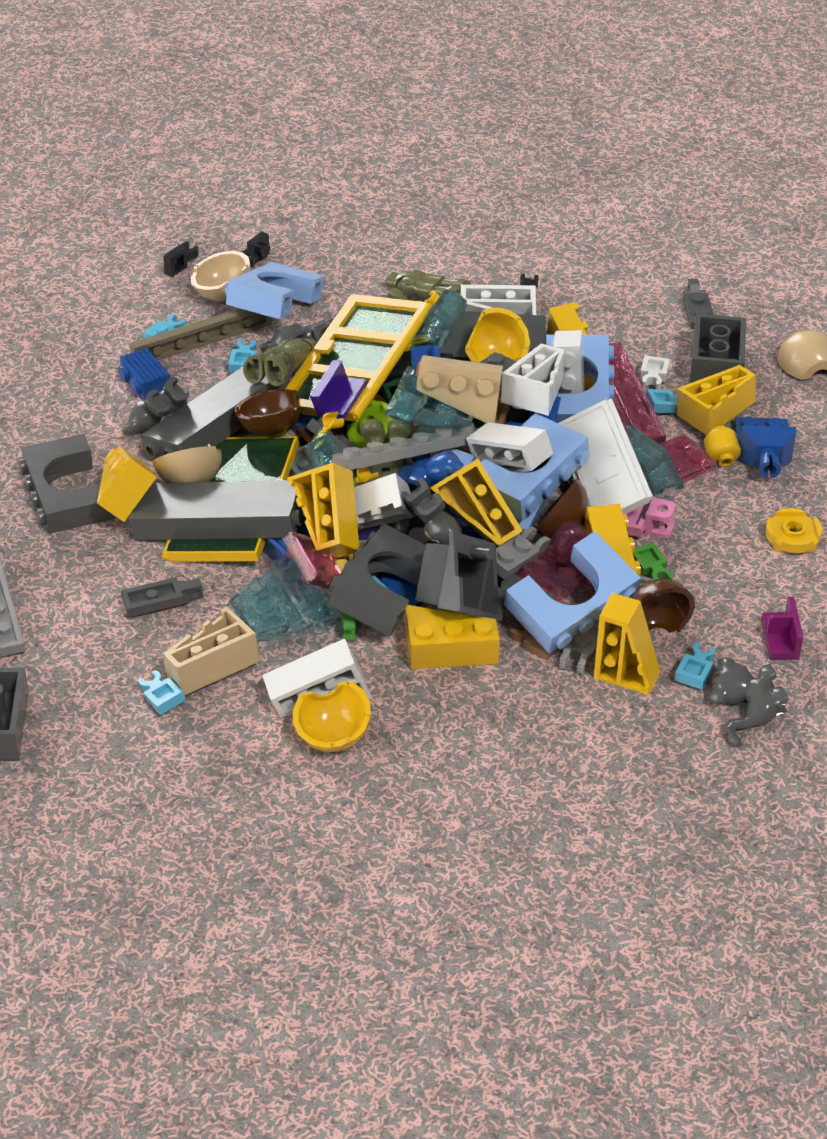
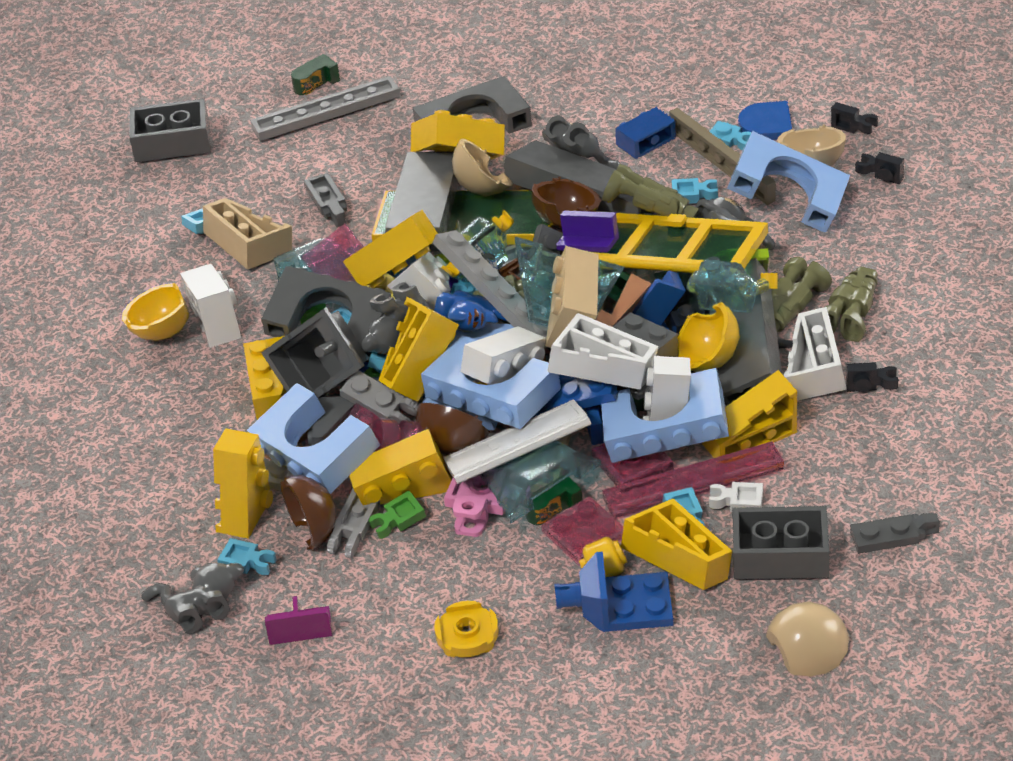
camera: 90 degrees right, 0 degrees up
(150, 307) = (766, 119): none -> blue tile

